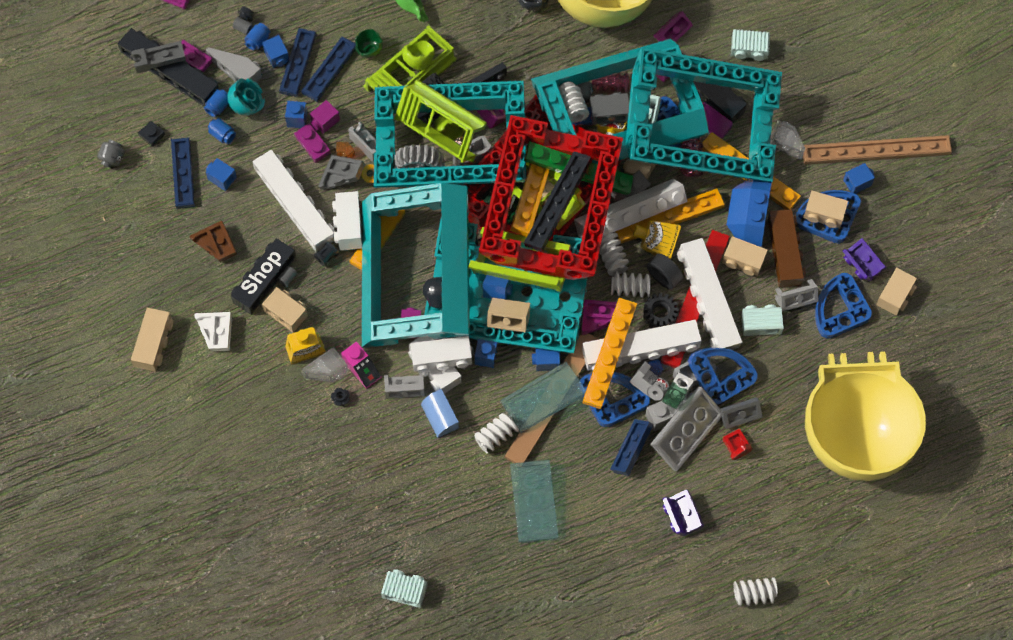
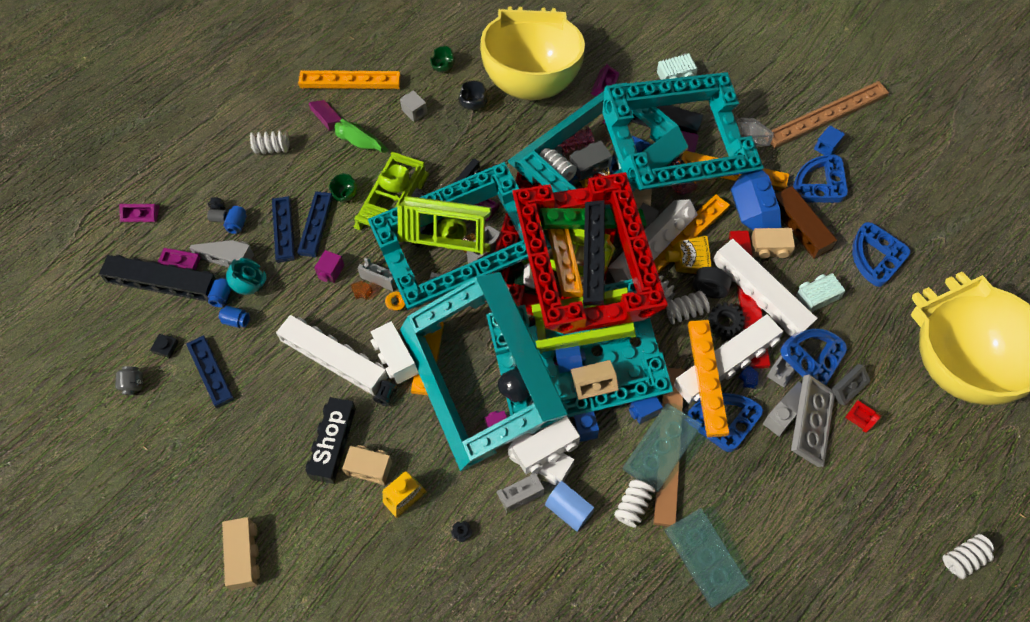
camera: 20 degrees left, 5 degrees down
(158, 56) = (143, 270): dark grey plate -> none
(215, 241) = (269, 425): reddish brown wing -> none
(216, 329) = (304, 514): white wing -> none
(220, 174) = (248, 357): blue brick -> none
(276, 51) = (258, 226): blue brick -> none
(287, 276) = (355, 430): dark grey hinge -> none
(296, 114) = (301, 274): blue brick -> none
(312, 143) = (327, 295): magenta plate -> none
(326, 367) = (435, 506): clear slope -> none
(341, 172) = (366, 310): dark grey wing -> none
(361, 365) = (468, 489): slope -> none
(418, 156) = (437, 265): light grey gear -> none
(596, 315) = (674, 346): magenta wing -> none
(631, 447) = (770, 461): dark blue plate -> none
(650, 383) = (754, 391): light grey leg -> none
(676, 392) = (789, 390): clear green leg -> none
(683, 513) = (855, 505): bracket -> none
(797, 297) = (839, 259): light grey hinge -> none
(825, 209) = (820, 175): tan brick -> none
(864, 260) = (875, 206): dark purple bracket -> none
(896, 291) = (918, 221): tan brick -> none

